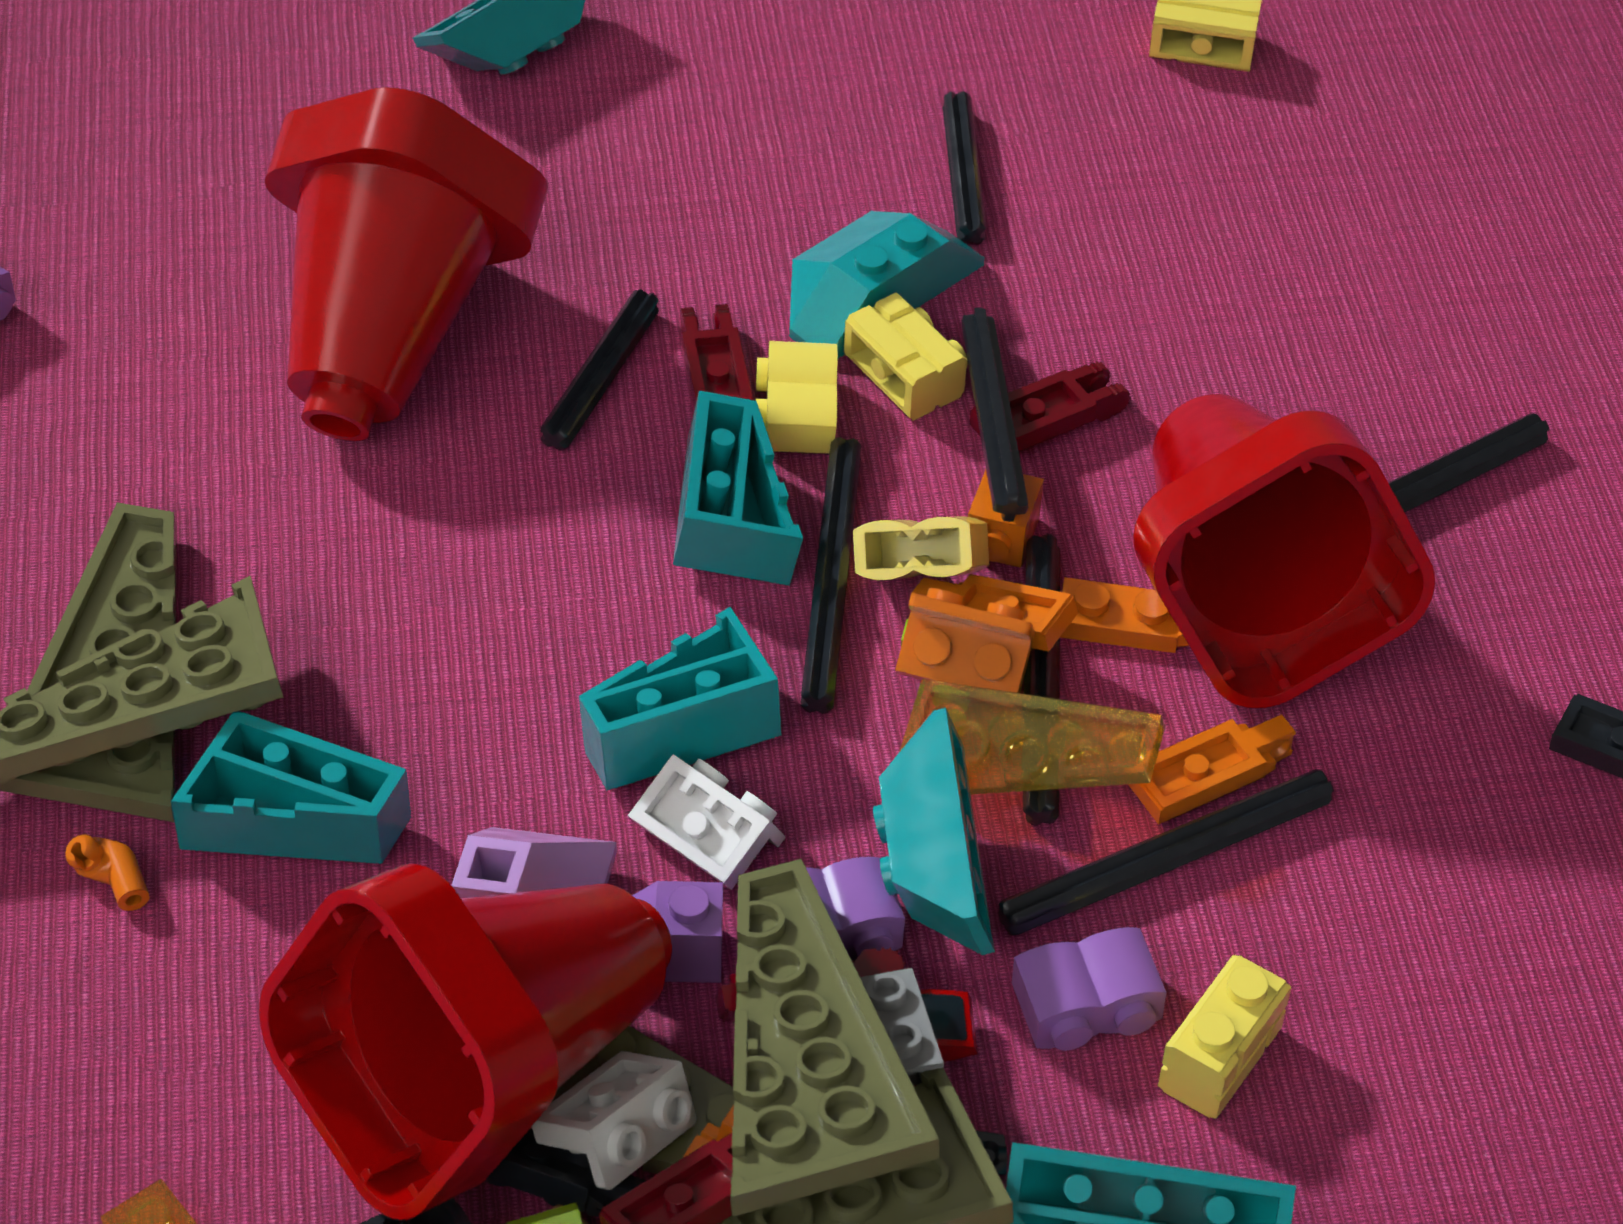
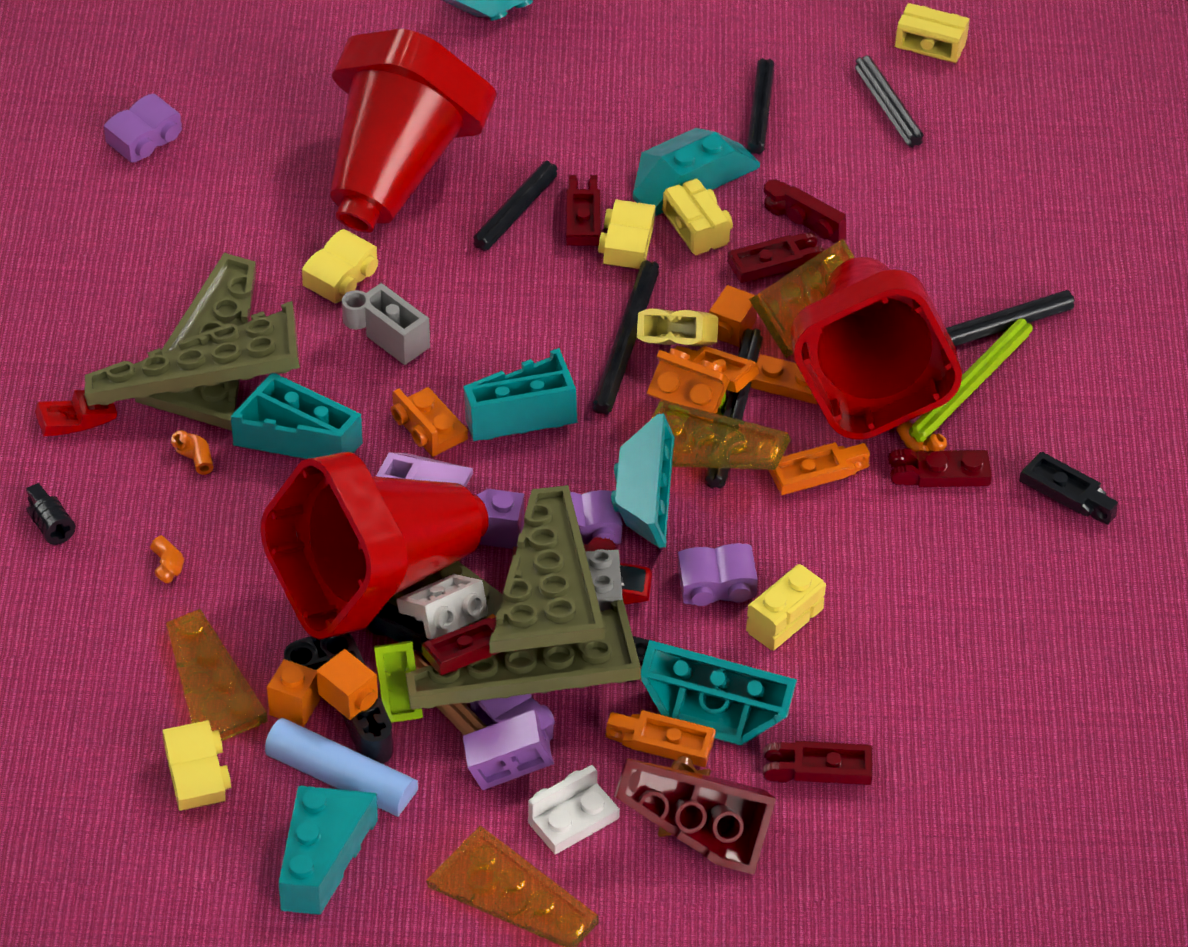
camera: 10 degrees right, 0 degrees up
(94, 1088) = (171, 559): none -> orange arm
(322, 504) = (340, 266): none -> light yellow brick
(423, 593) = (388, 321): none -> light grey hinge
(520, 762) = (428, 420): none -> orange bracket
(704, 821) = (522, 462): white bracket -> none
(731, 498) = (575, 286): teal wedge -> none
(994, 415) = (737, 255): black axle -> none
(1080, 327) = (805, 210): none -> dark red hinge
(1110, 472) = (792, 293): none -> clear yellow wing
(1164, 852) = (781, 509): black axle -> none
(1165, 140) = (889, 101): none -> axle
(1371, 706) = (932, 443): none -> orange arm
(1414, 742) = (940, 468): none -> dark red hinge
(1443, 550) = (973, 378): none -> lime axle

